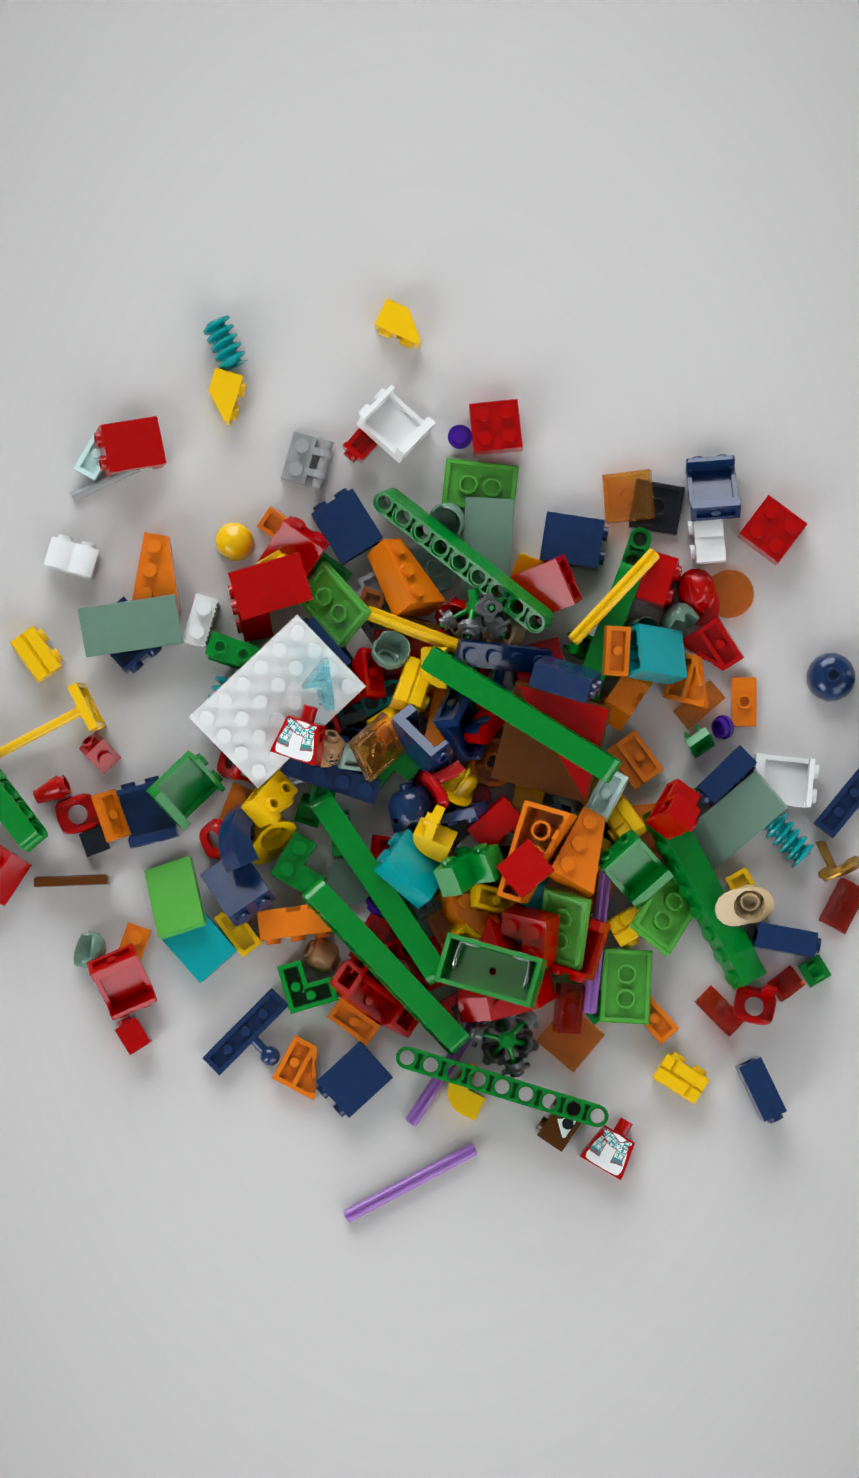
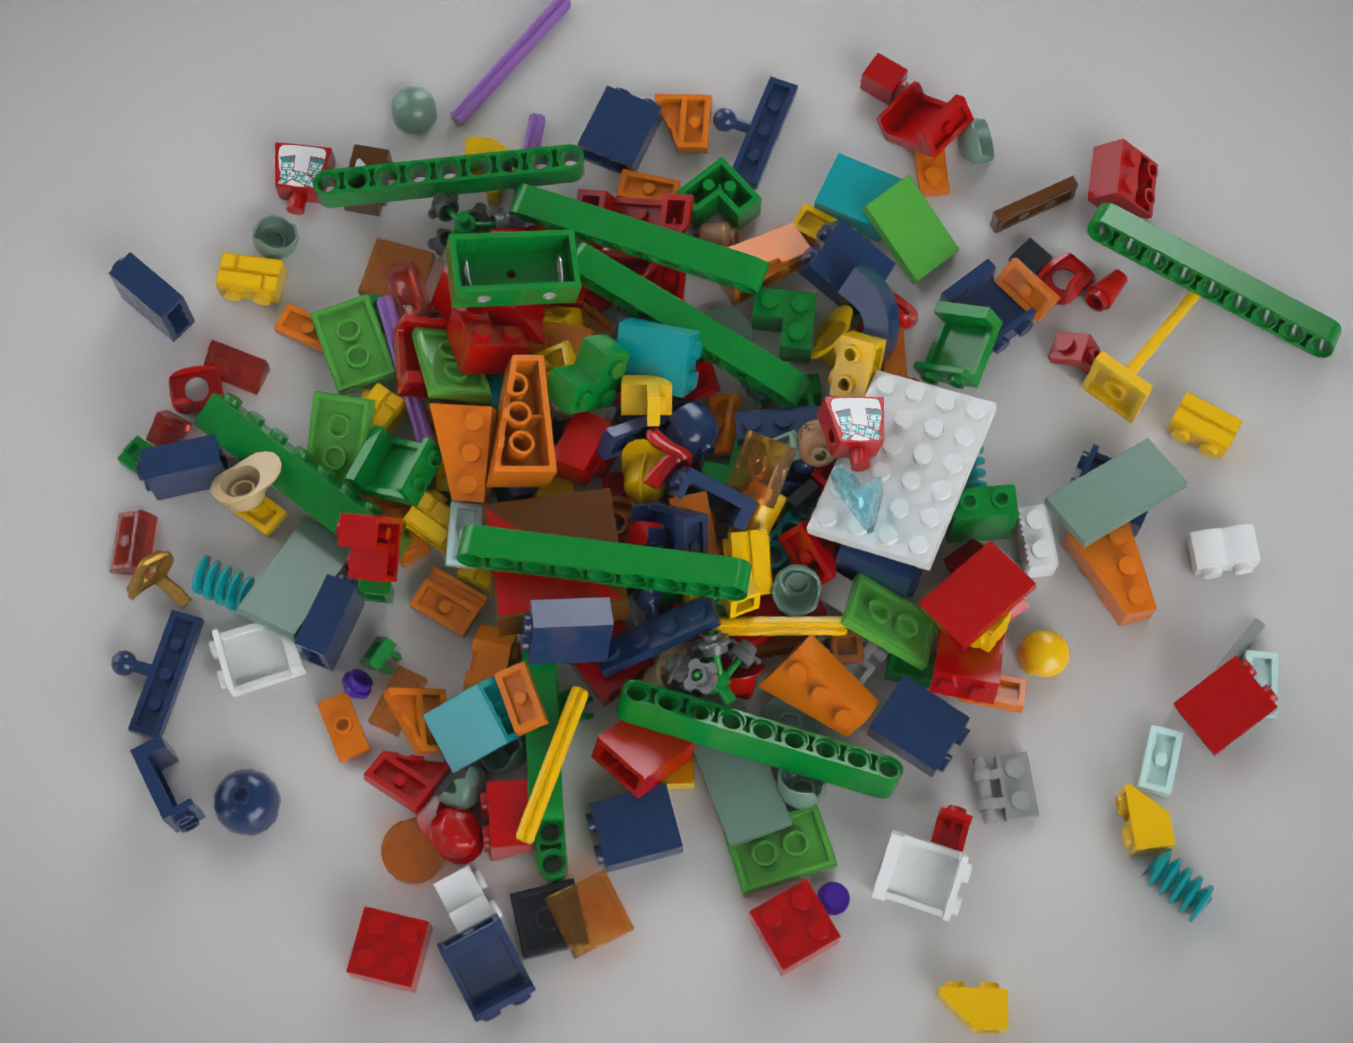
camera: 155 degrees right, 15 degrees down
(193, 431) = (1160, 760): none -> light aqua plate
(377, 815) = (723, 409): none -> orange plate
(502, 1171) = (413, 109): none -> sand green hair
(525, 868) = (521, 392): red piece -> none
(650, 1103) = (275, 237): none -> sand green hair

